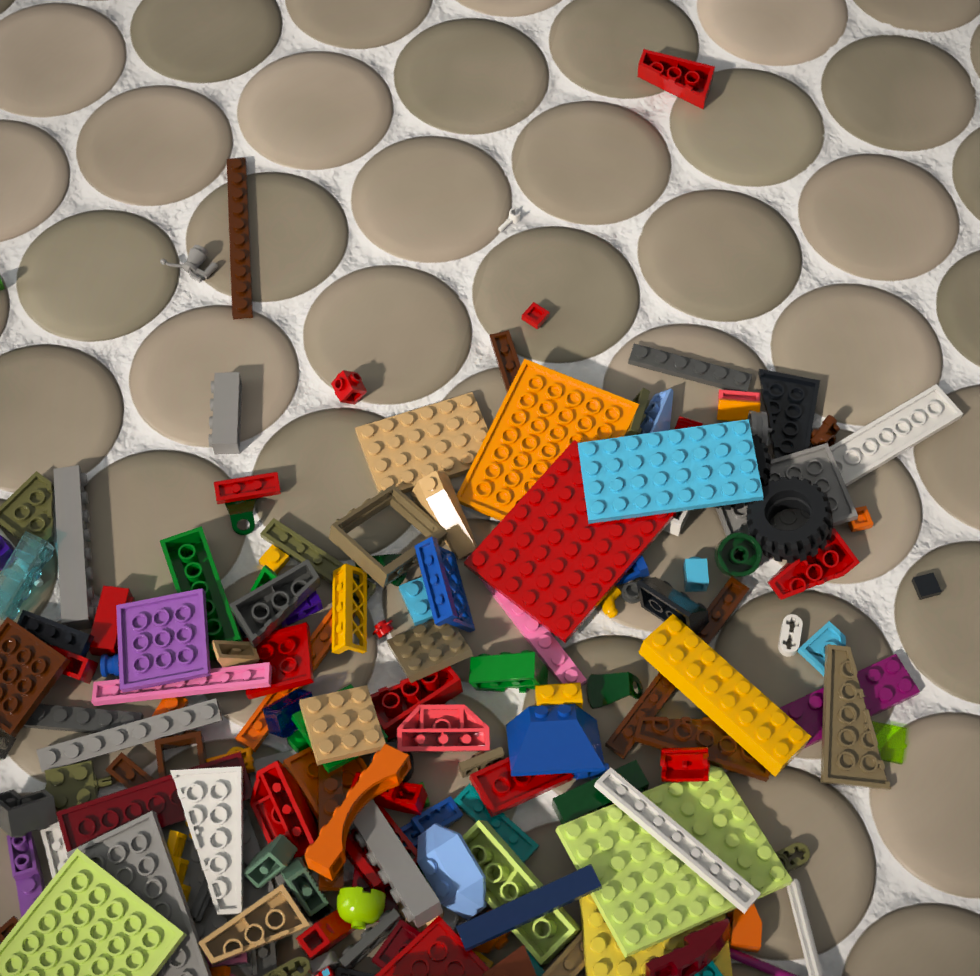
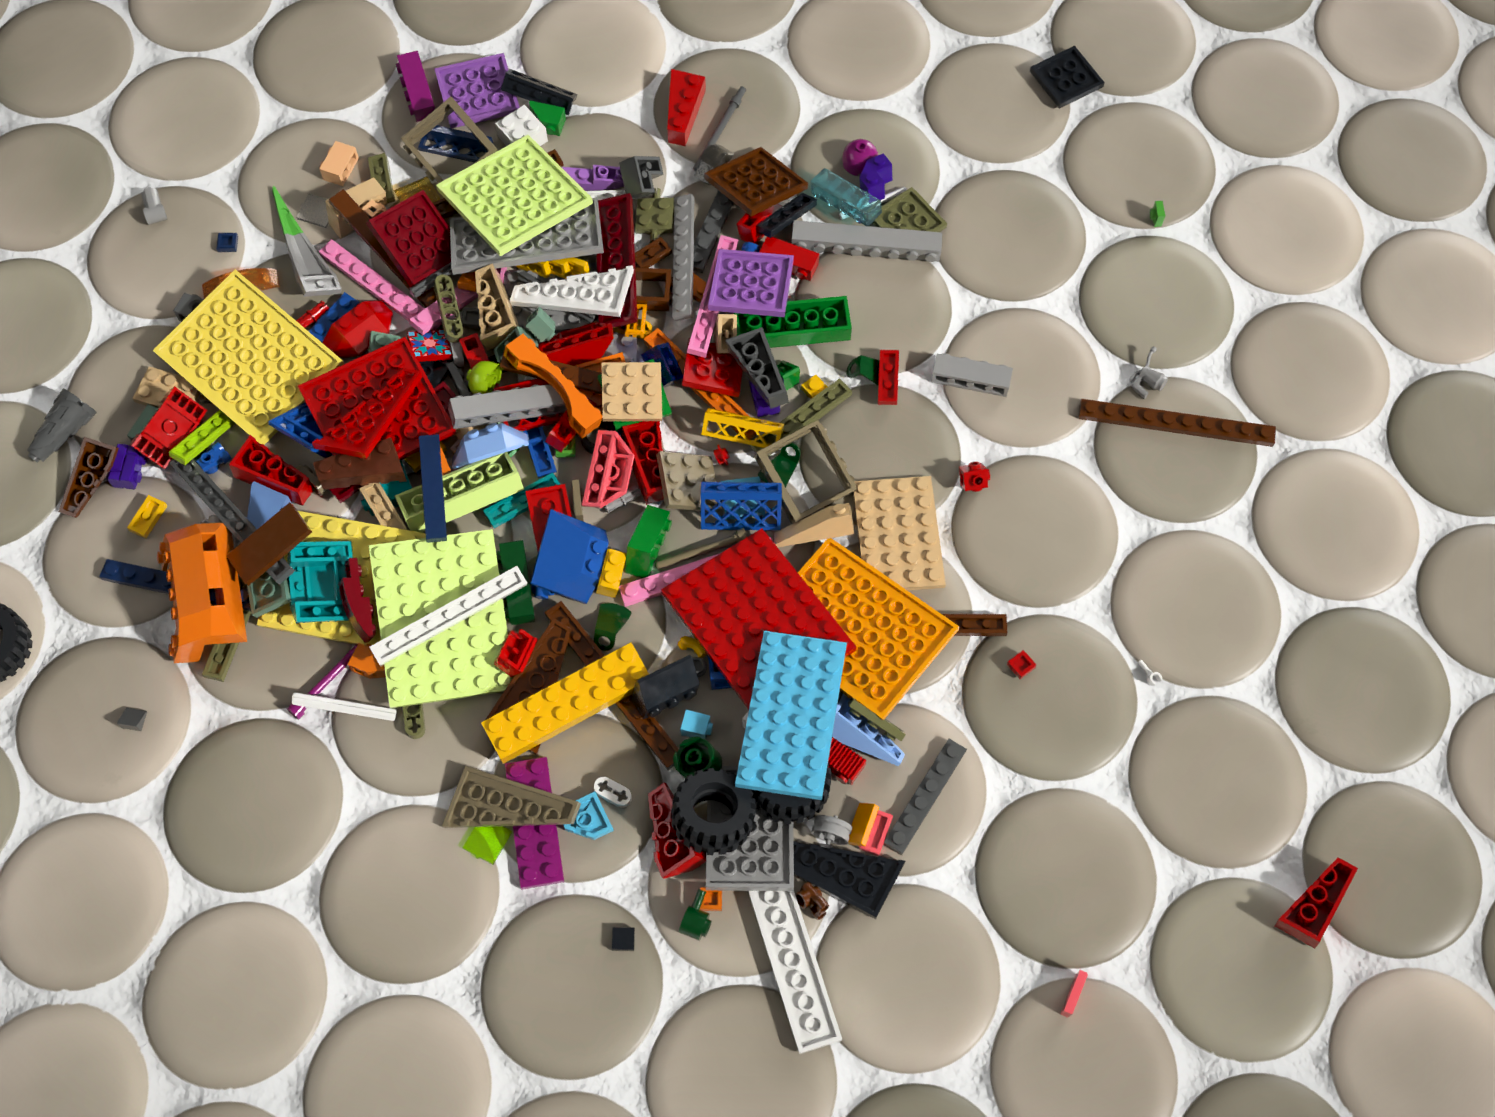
camera: 105 degrees right, 5 degrees up
(475, 587) = (737, 537): none -> dark tan piece
(821, 227) = (1074, 993): none -> coral tile
(886, 524) = (695, 921): none -> dark green piece

